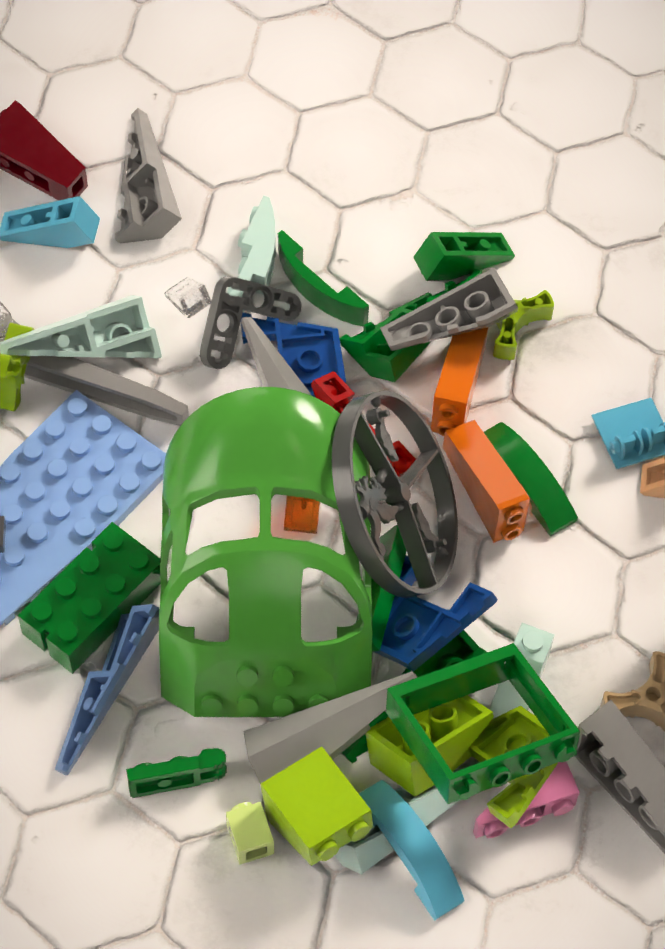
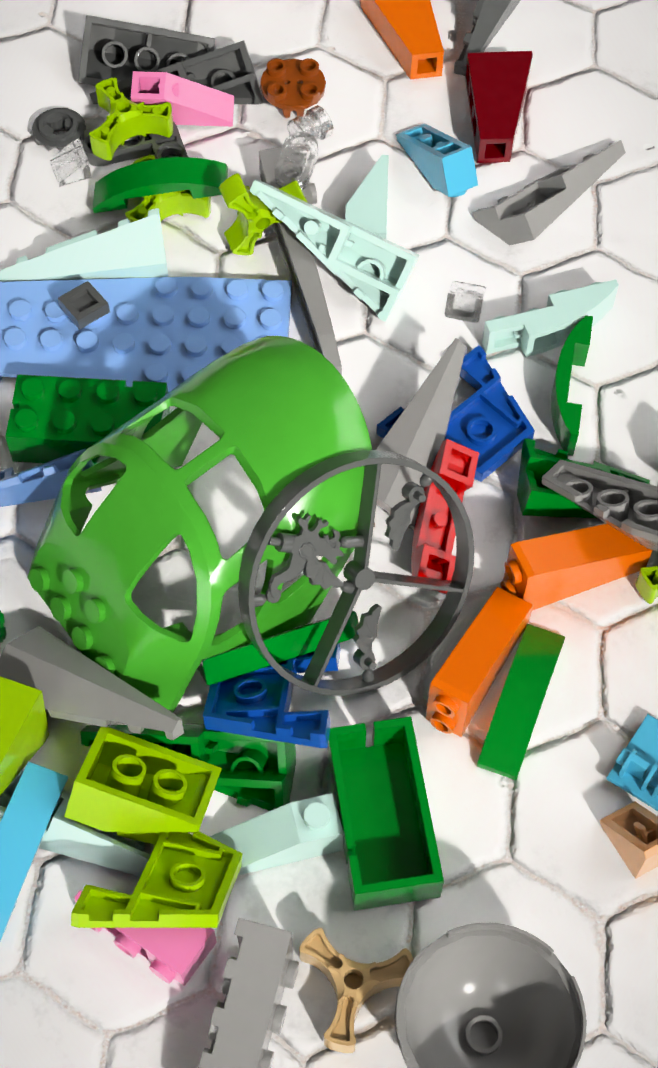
camera: 55 degrees right, 0 degrees up
(56, 293) = (369, 202): none -> light aqua slope
(233, 307) = (469, 332): dark grey beam -> none
(467, 678) = (192, 762): green window -> none
(556, 600) = (384, 814): none -> green piece

